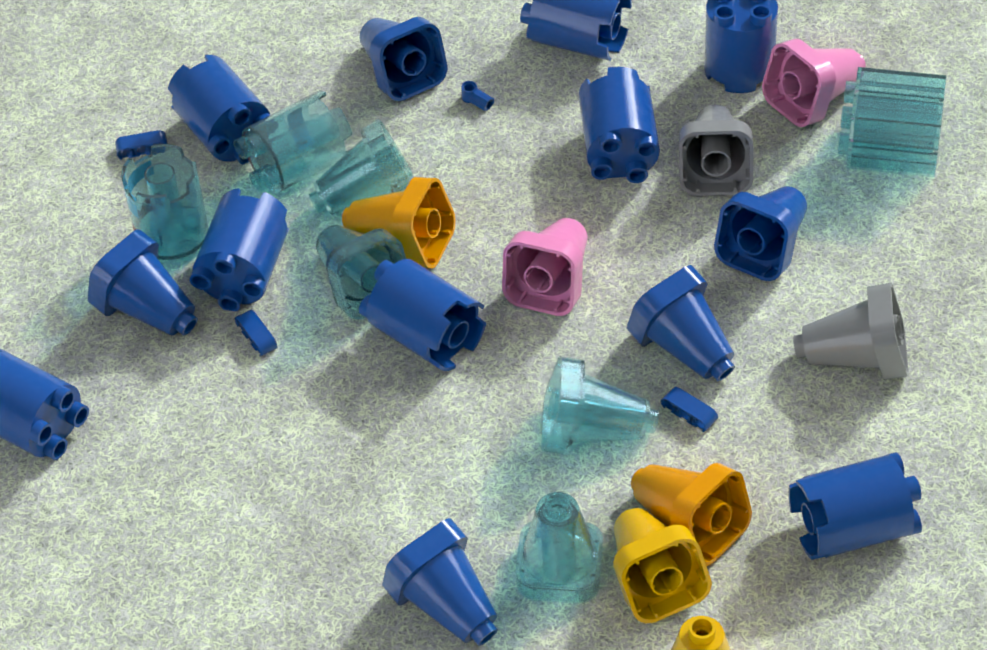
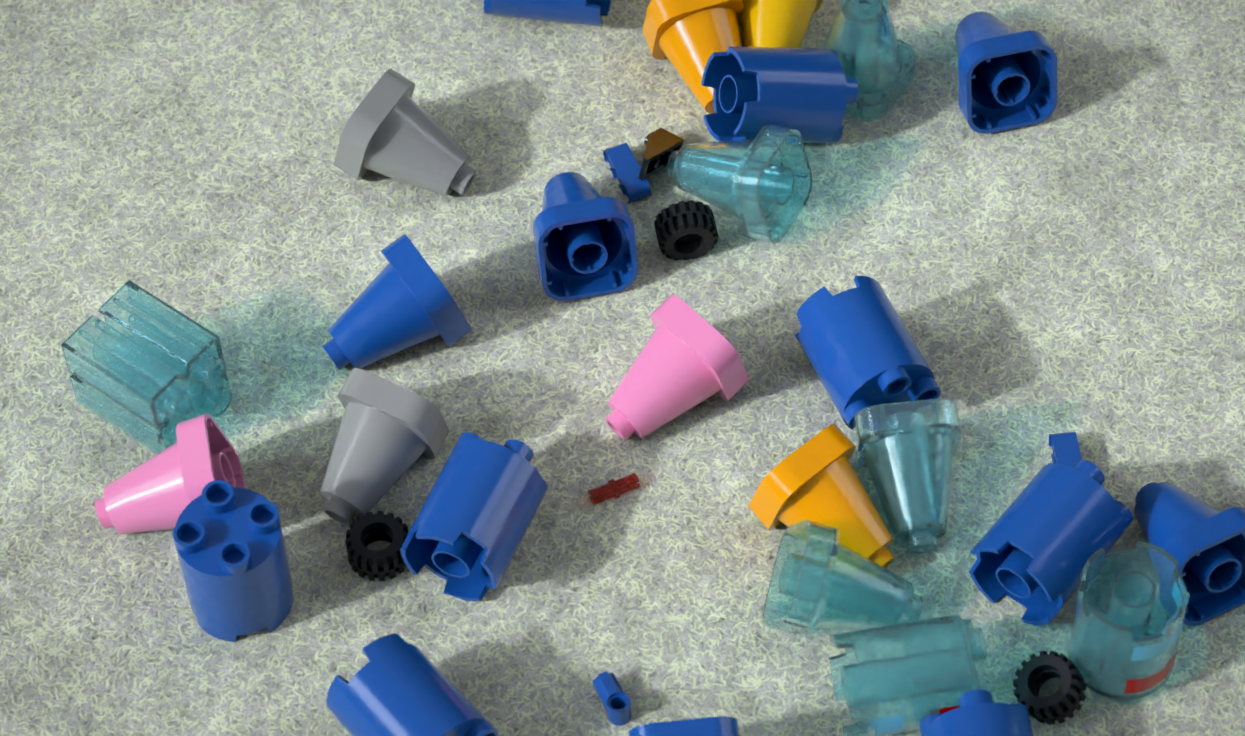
camera: 155 degrees left, 5 degrees up
(213, 186) = (1036, 673): none -> black tyre
(546, 212) = (613, 488): none -> clear red pin
(598, 459) = (779, 88): none -> blue brick
(611, 363) = (686, 230): none -> black tyre
(674, 110) = (376, 562): none -> black tyre
(674, 426) = (658, 150): none -> slope

